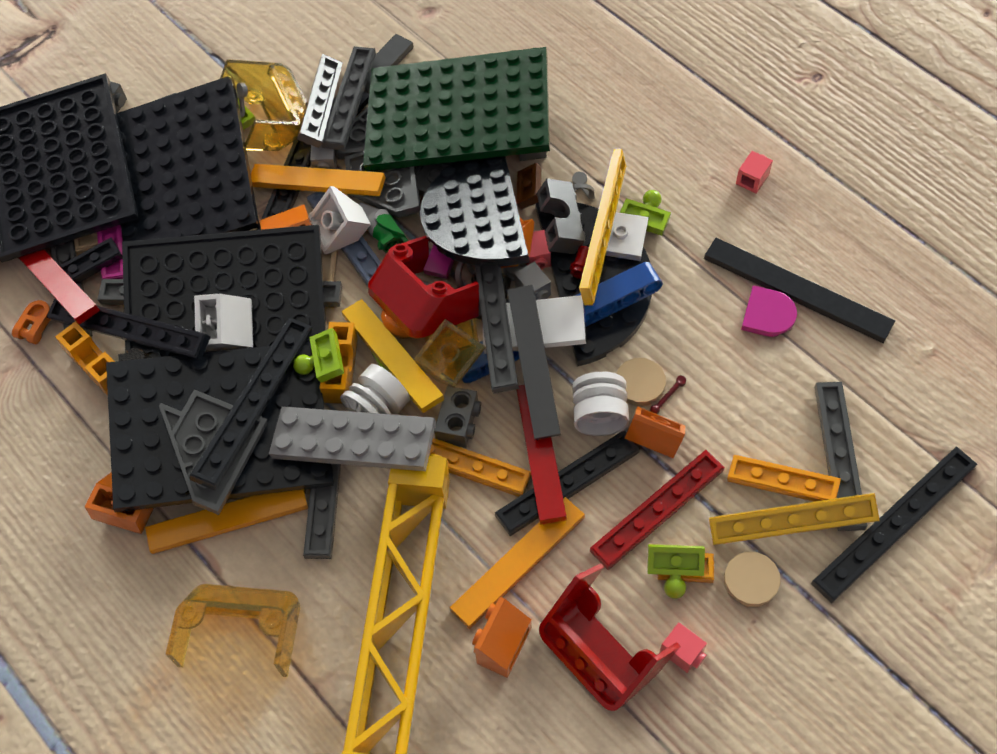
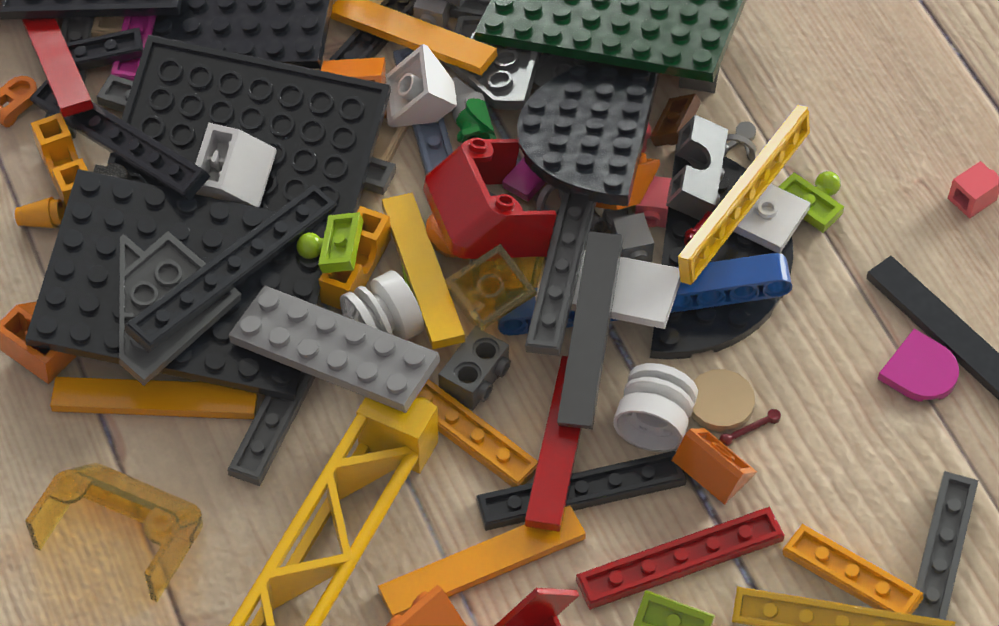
camera: 15 degrees right, 5 degrees down
(89, 402) = (42, 213): none -> light orange cone

